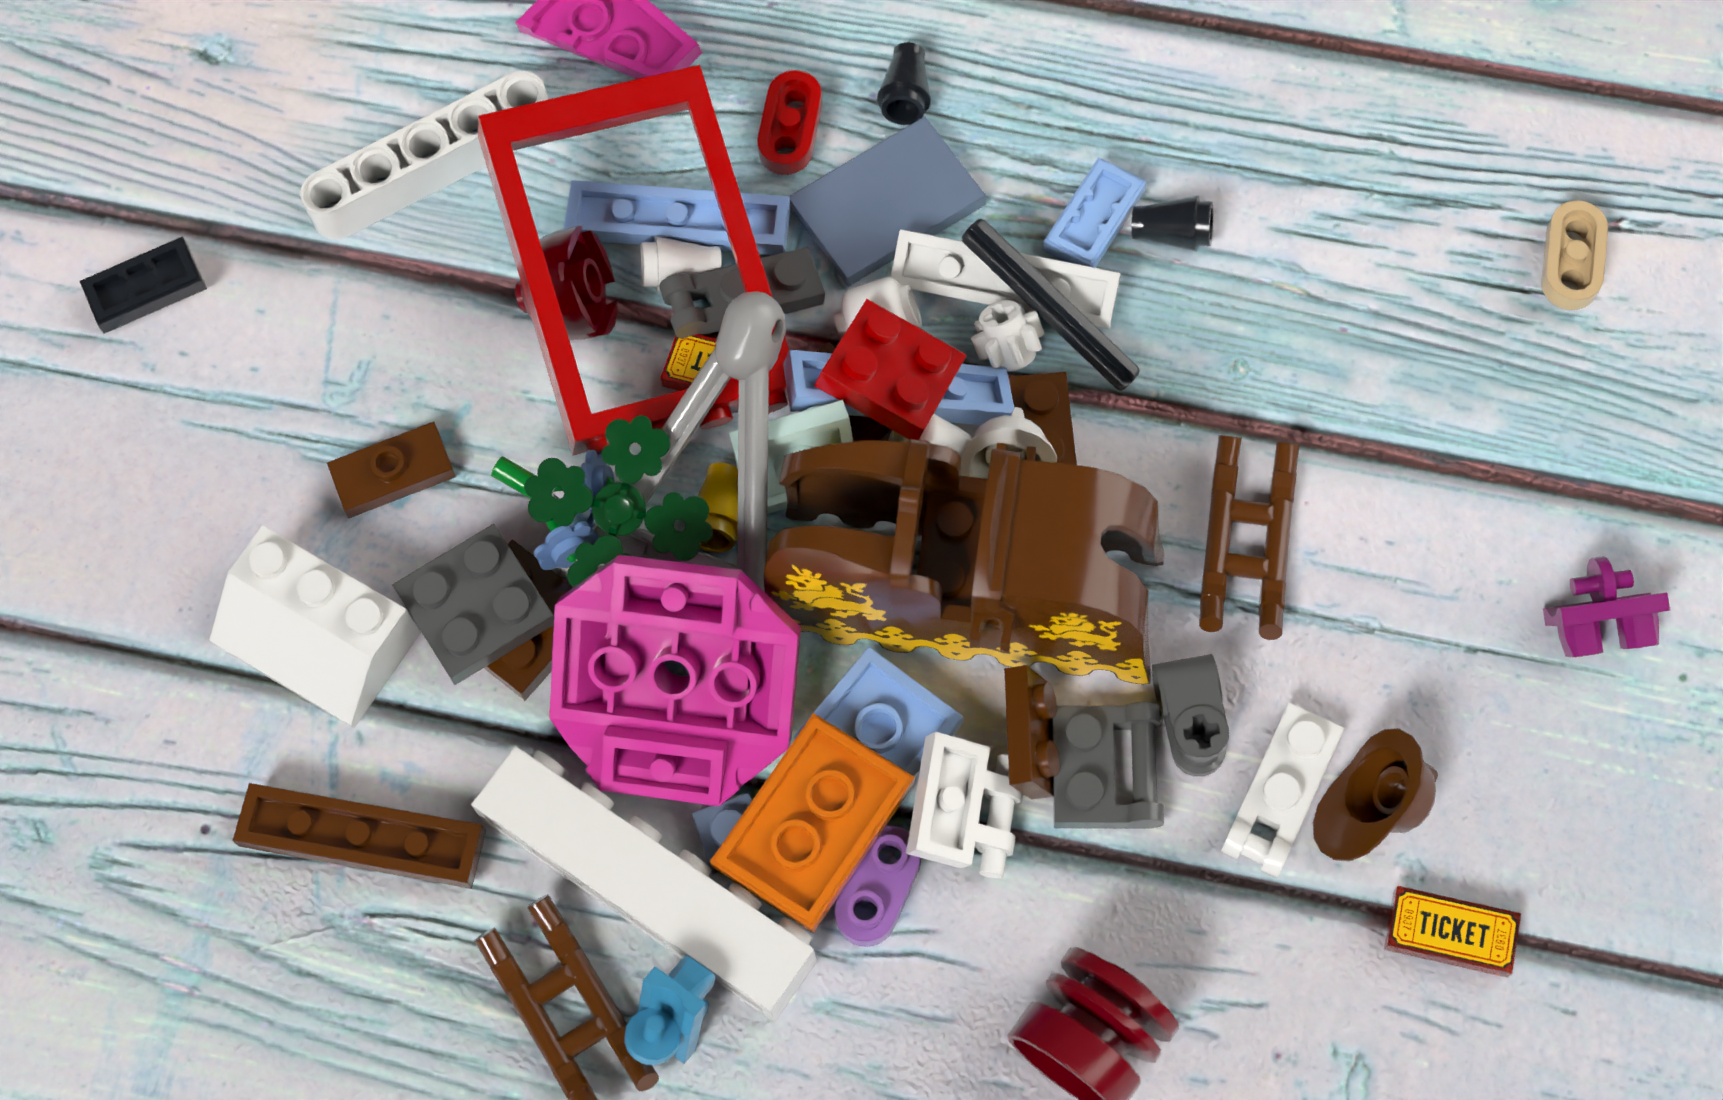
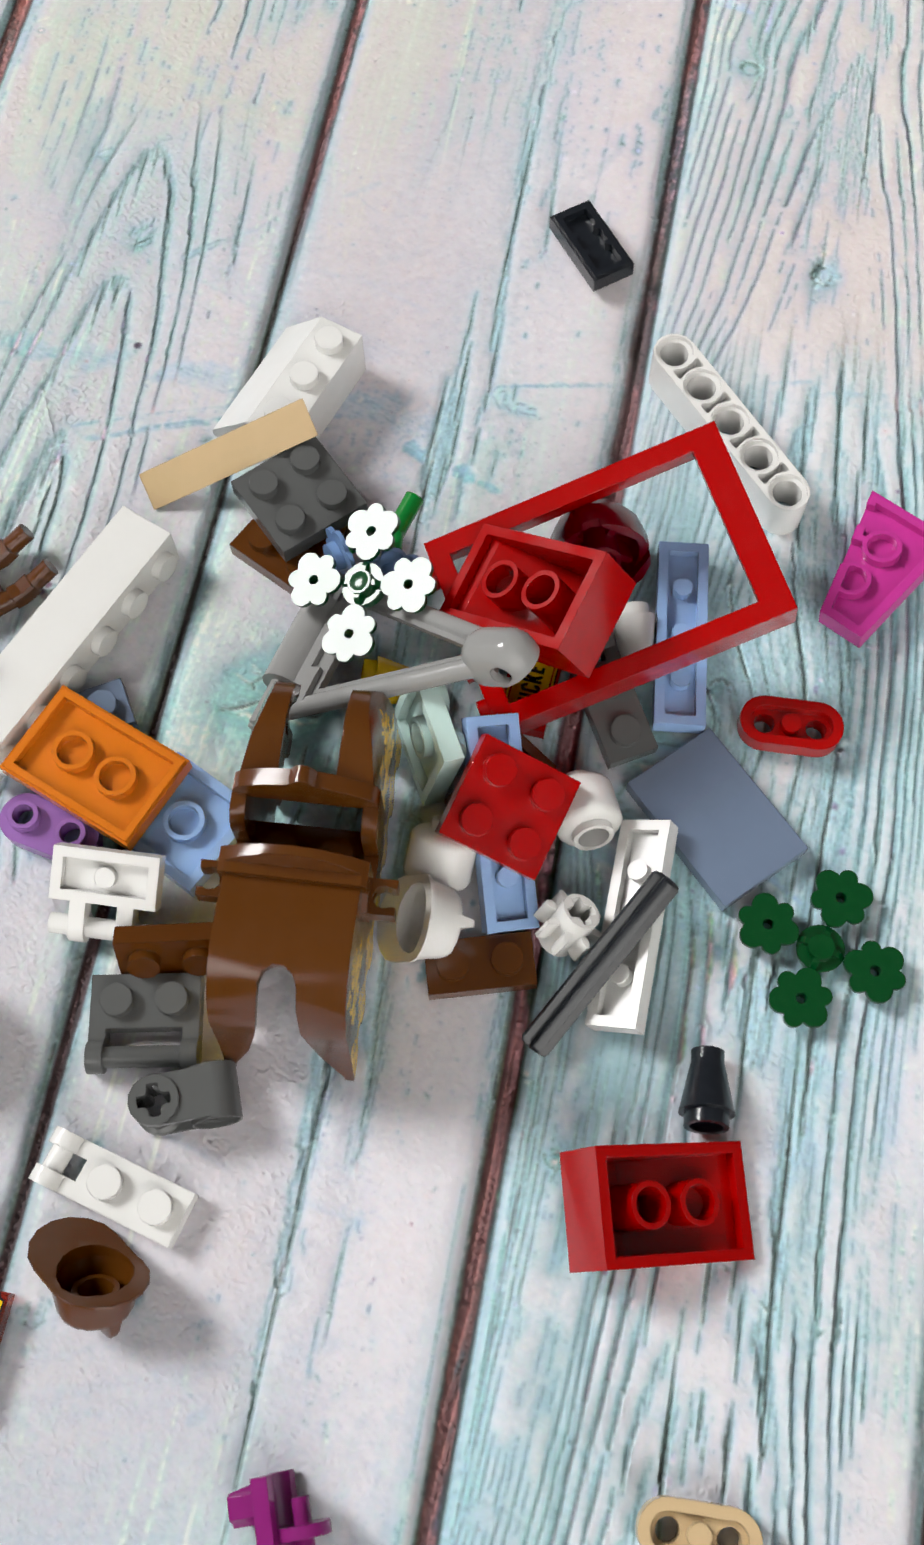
camera: 85 degrees right, 0 degrees up
(360, 835) = (116, 440): reddish brown plate -> none
(391, 470) = (432, 437): reddish brown plate -> none
(408, 686) = (228, 454): none -> tan sticker
(660, 730) = (212, 642): dark pink piece -> none
(661, 315) = (548, 588): none -> red slope
(905, 87) = (839, 828): black cone -> none
(1029, 116) = (821, 949): none -> dark green plant
(1094, 214) = (711, 1012): light blue plate -> none
(1274, 515) = (342, 1132): reddish brown piece -> none
(1289, 276) = (655, 1205): none -> red slope

